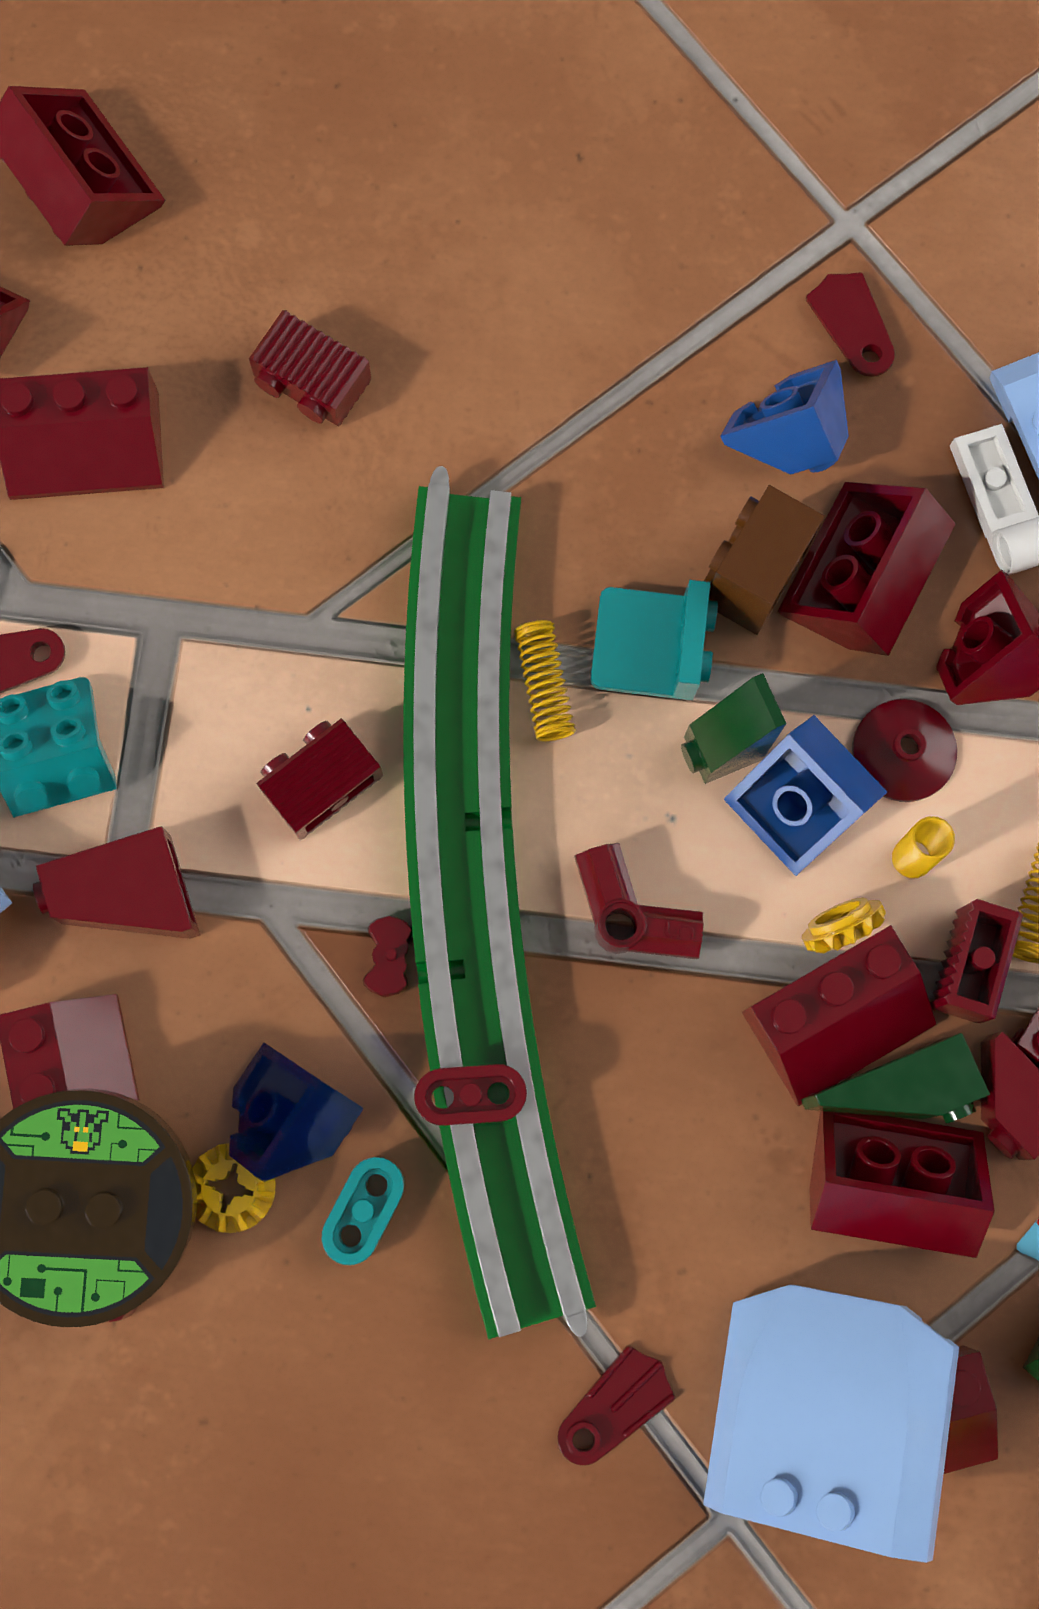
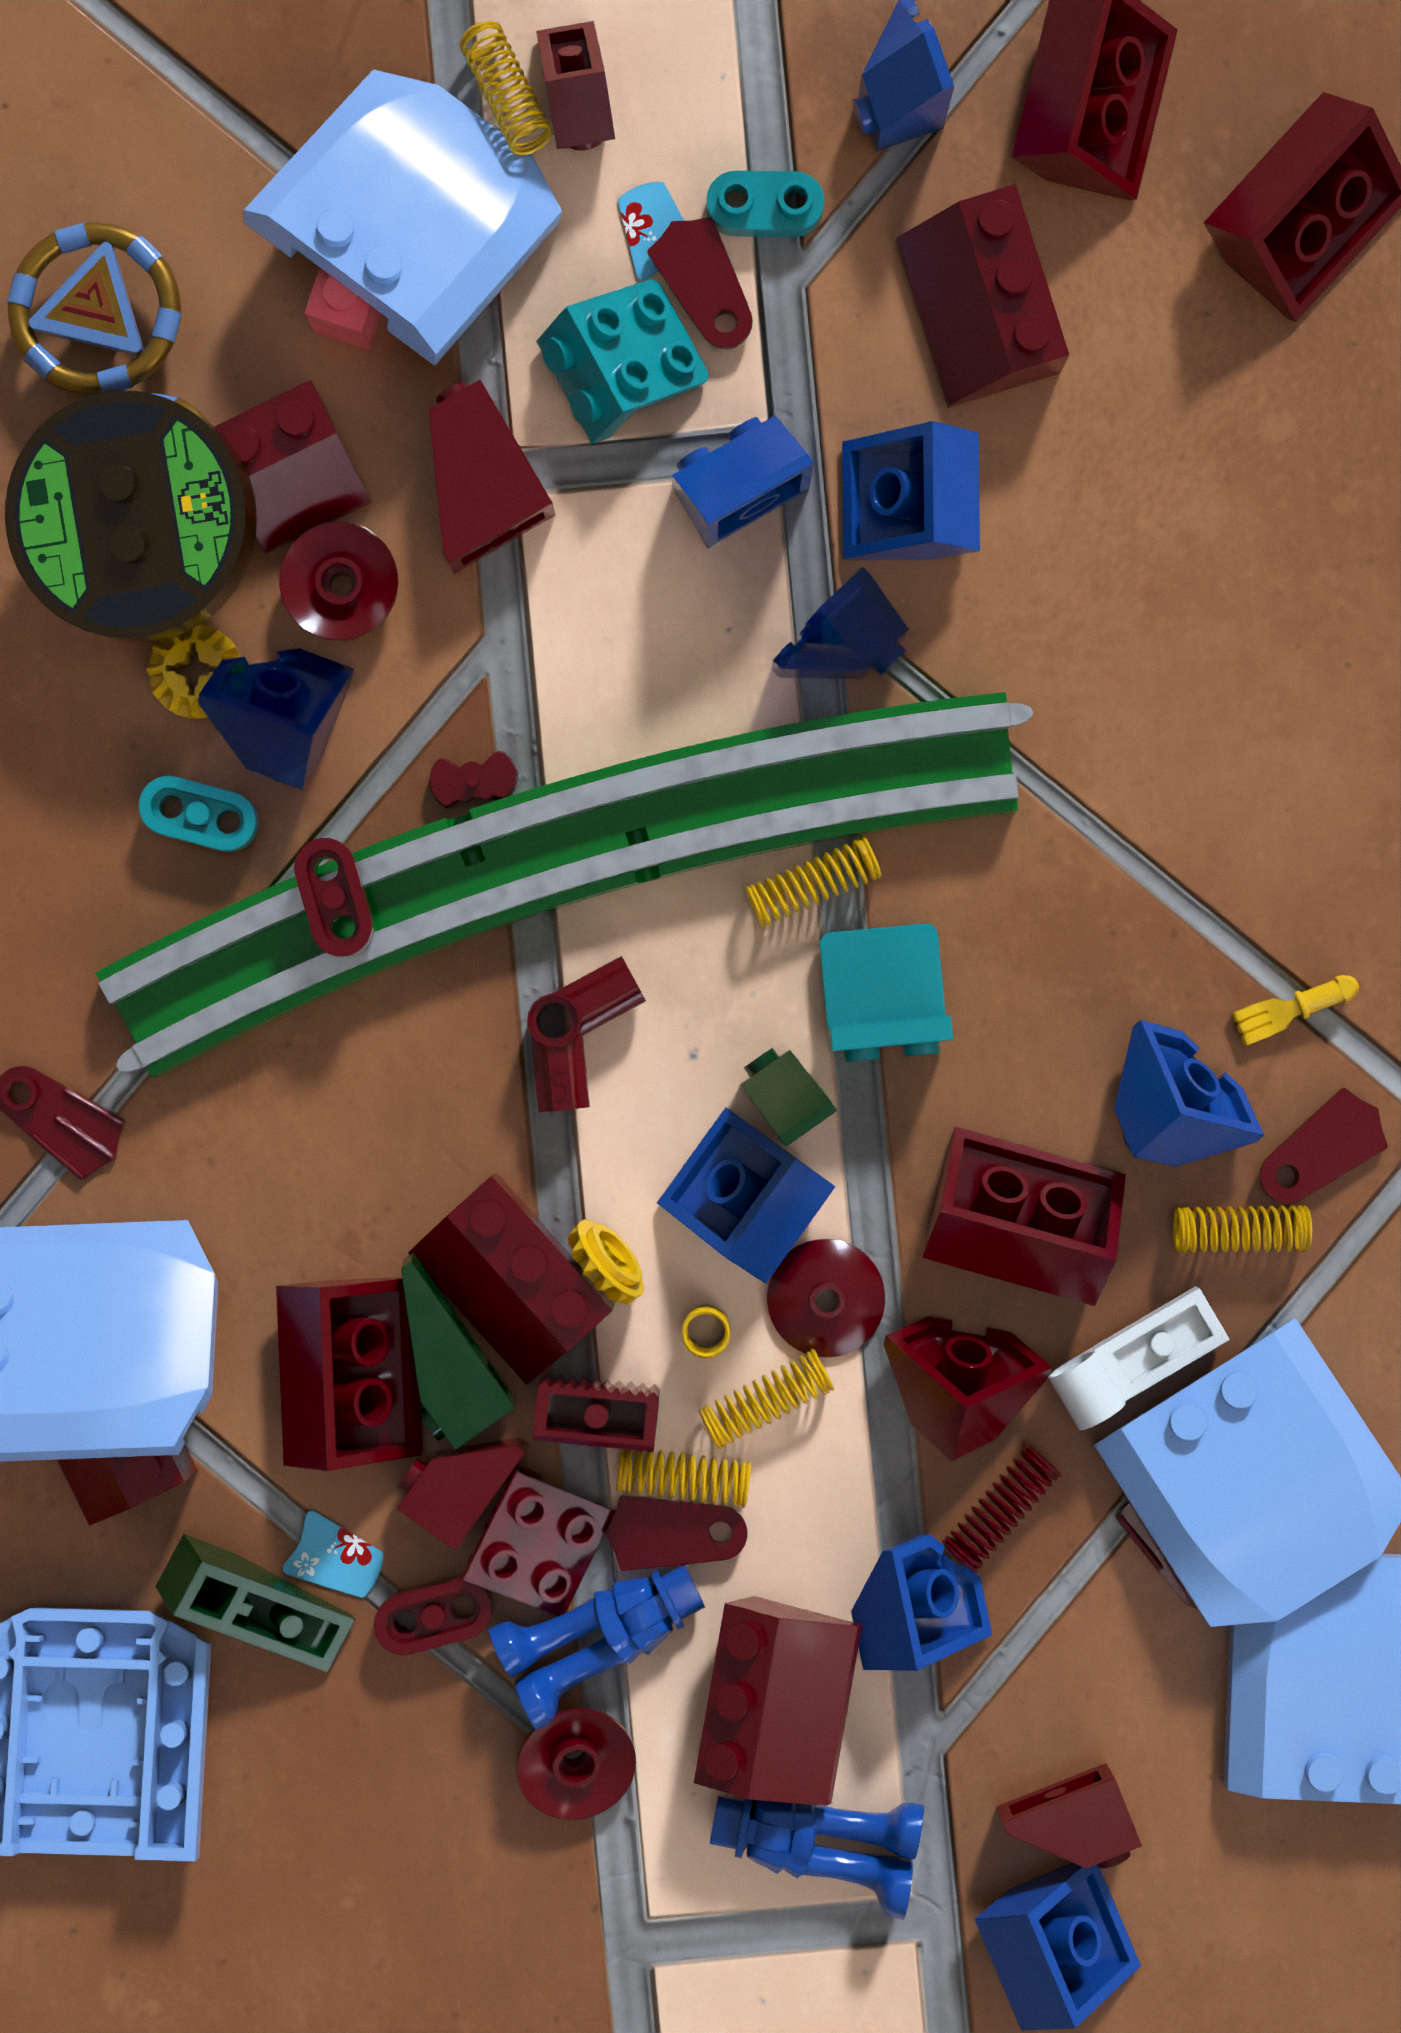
camera: 85 degrees right, 10 degrees up
(155, 1030) = (321, 557): none -> dark red dish
(181, 661) = (742, 478): none -> blue slope
(230, 528) = (911, 493): none -> blue slope
(309, 369) = (1119, 536): dark red brick -> none
(319, 777) = (648, 659): dark red brick -> none
(340, 601) = (846, 635): none -> clear blue slope
(735, 338) = (1275, 1015): none -> yellow piece
(761, 557) = (999, 1094): reddish brown brick -> none
(906, 436) = (1185, 1232): none -> yellow piece
(995, 865) = (717, 1431): none -> yellow piece

